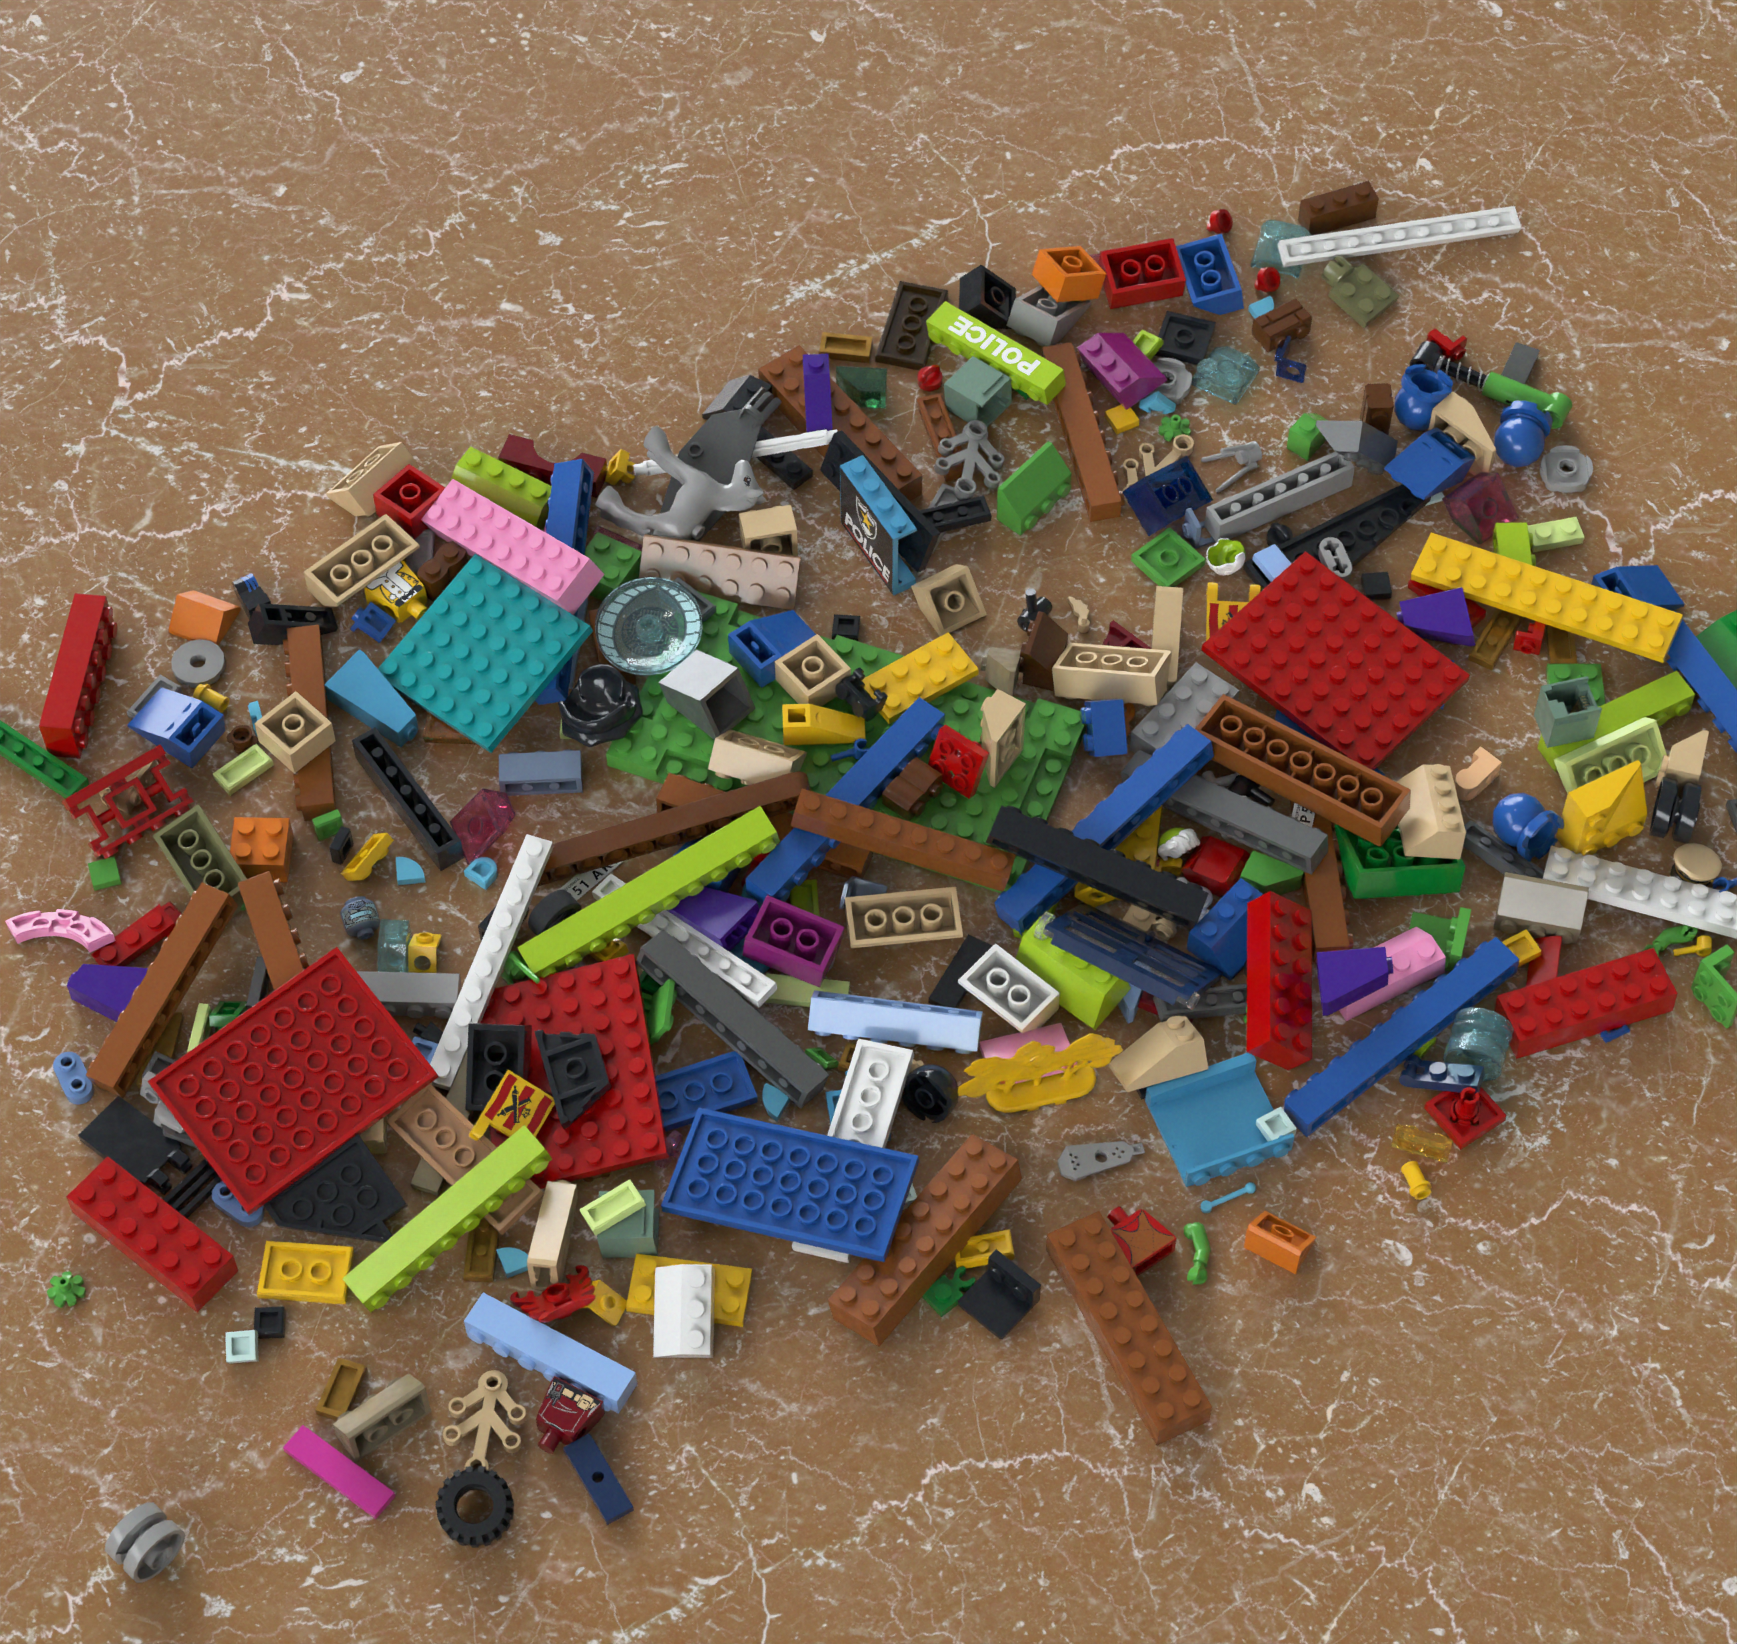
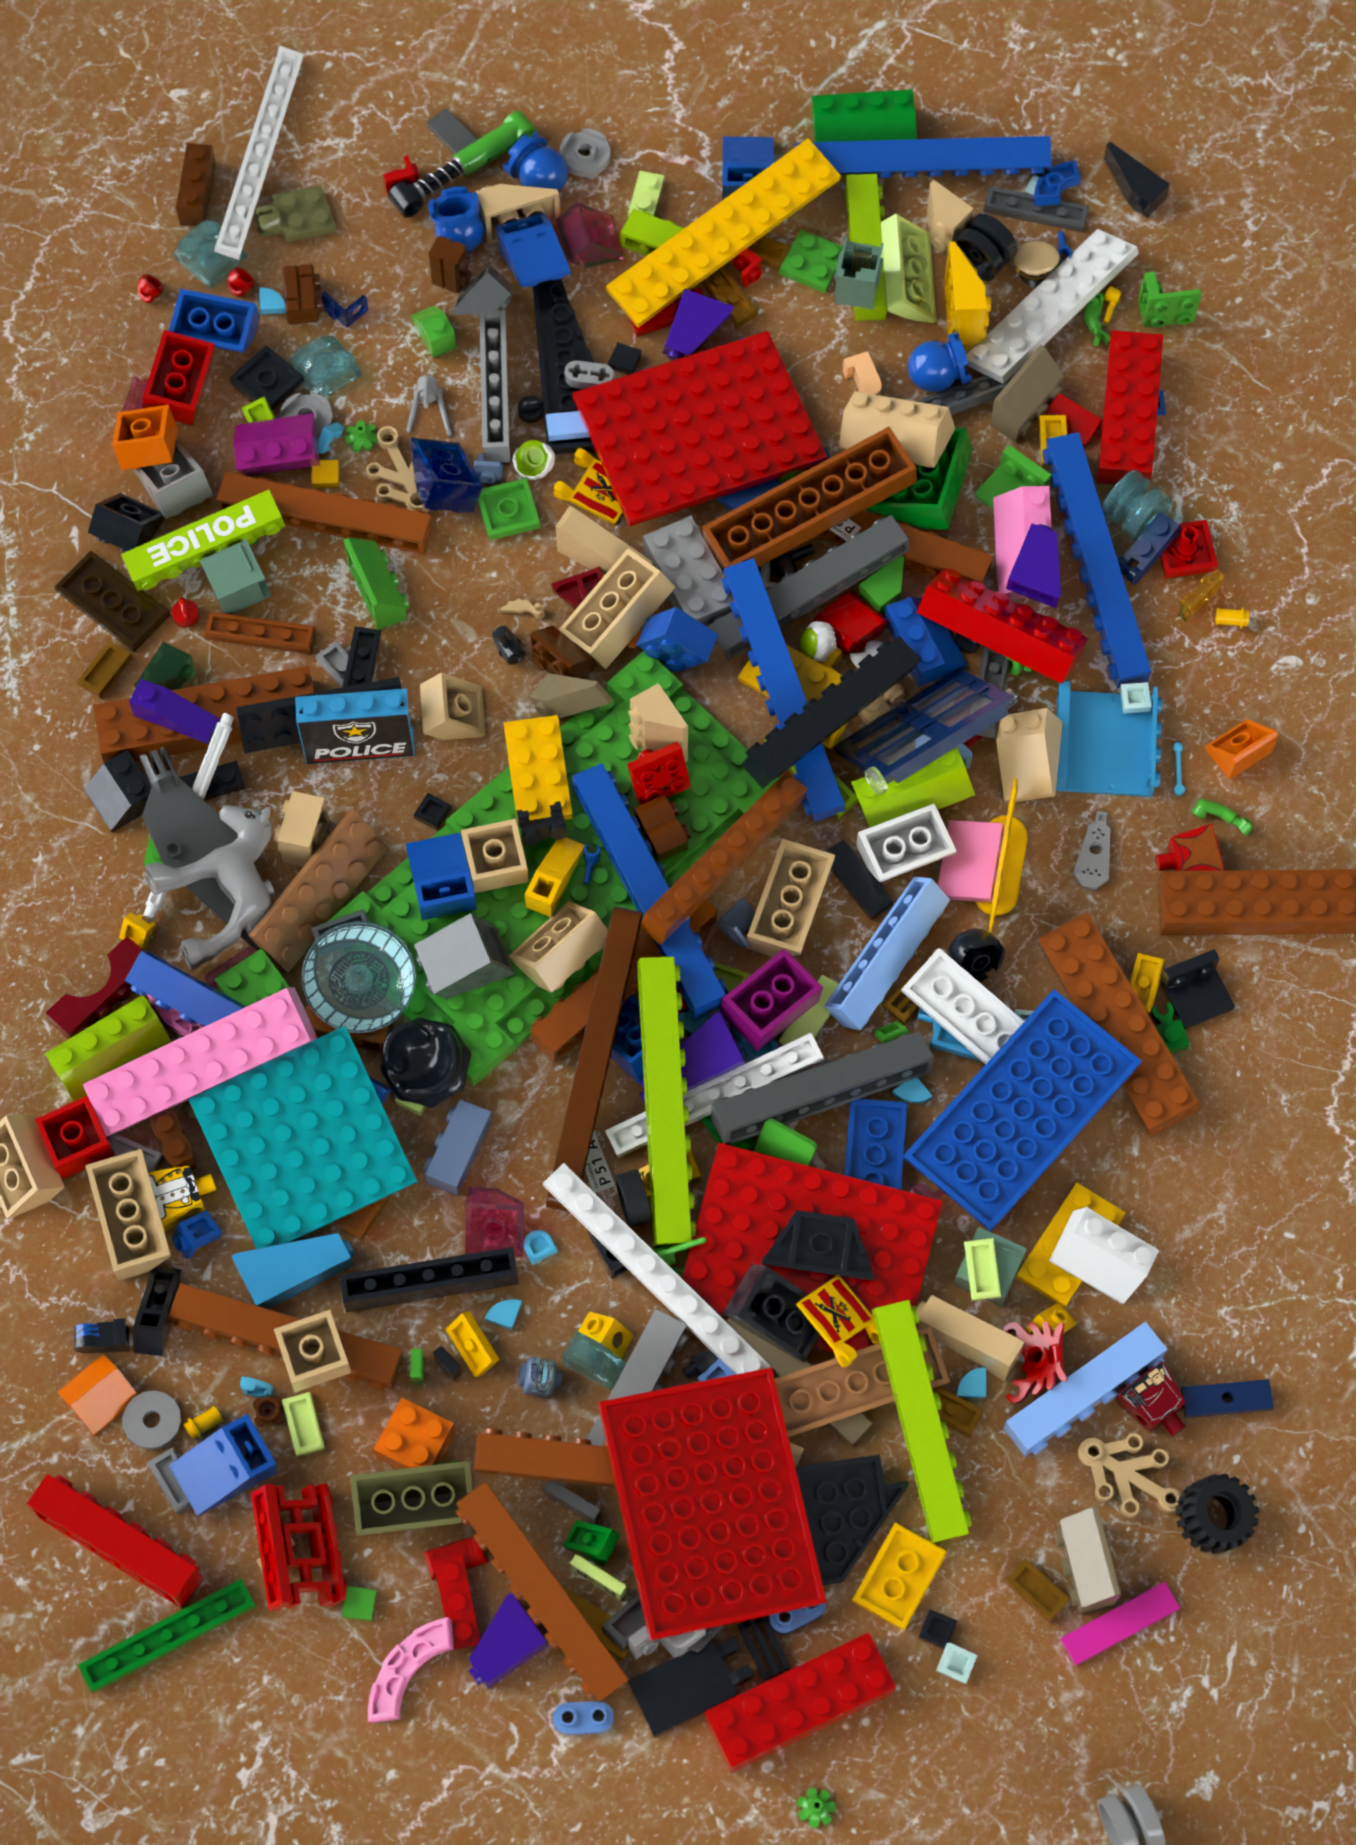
camera: 65 degrees left, 10 degrees up
(974, 434) = (278, 603): light grey plant -> none

